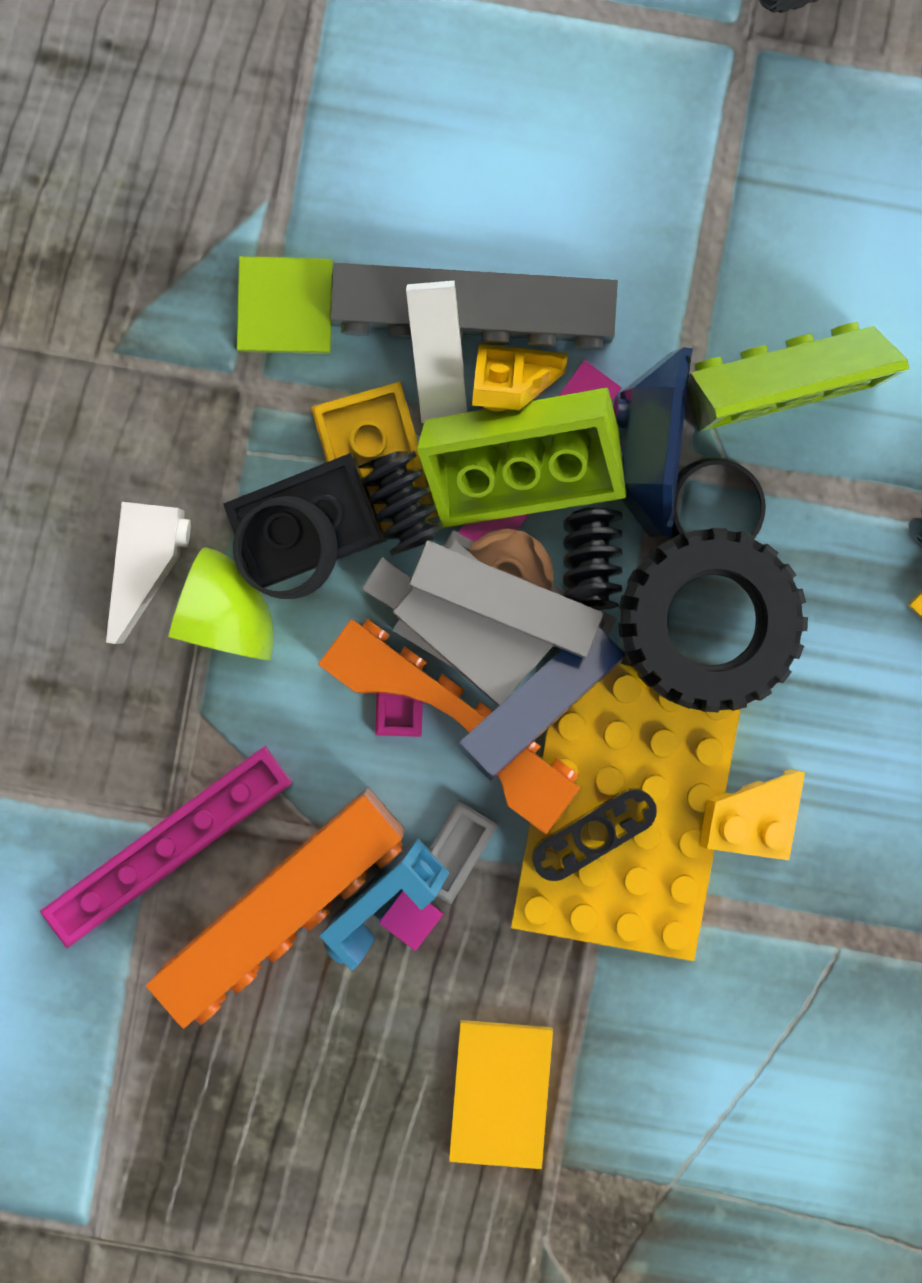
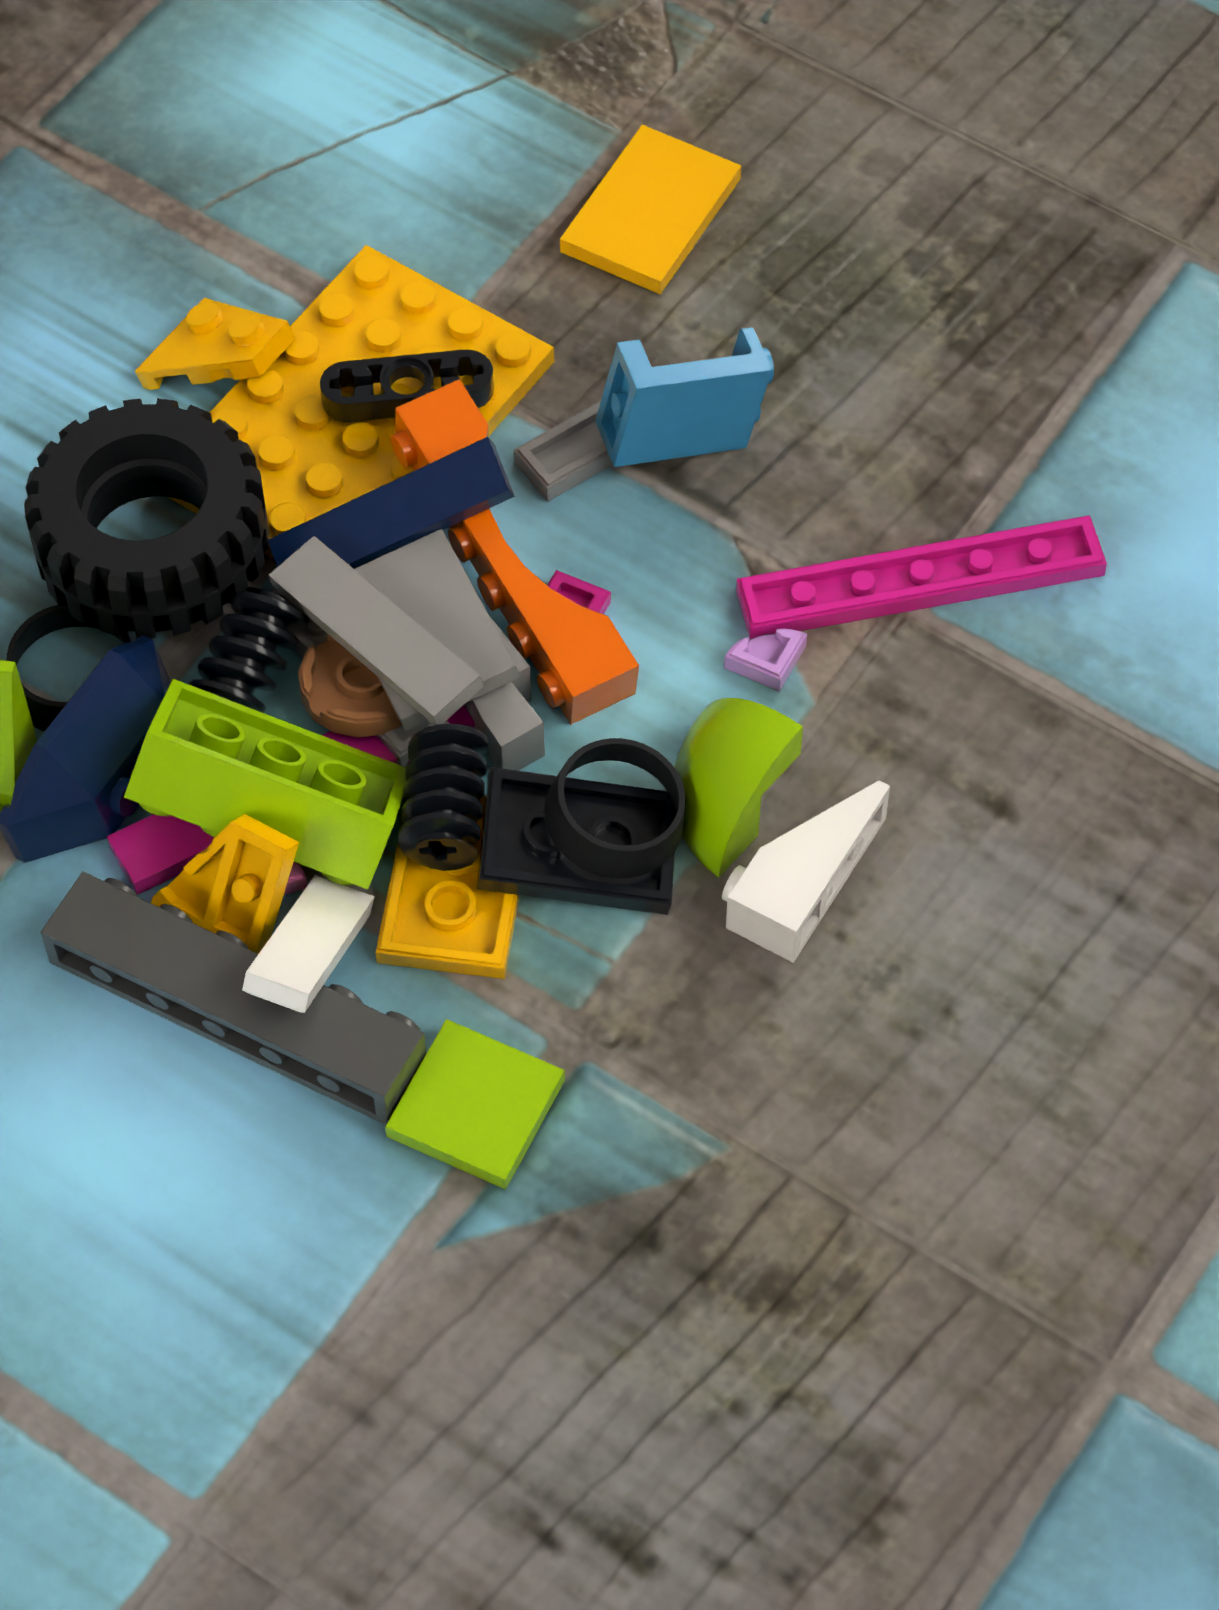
camera: 155 degrees left, 30 degrees down
(244, 732) = (767, 657): none -> lavender tile
(275, 908) = (810, 445): orange brick -> none

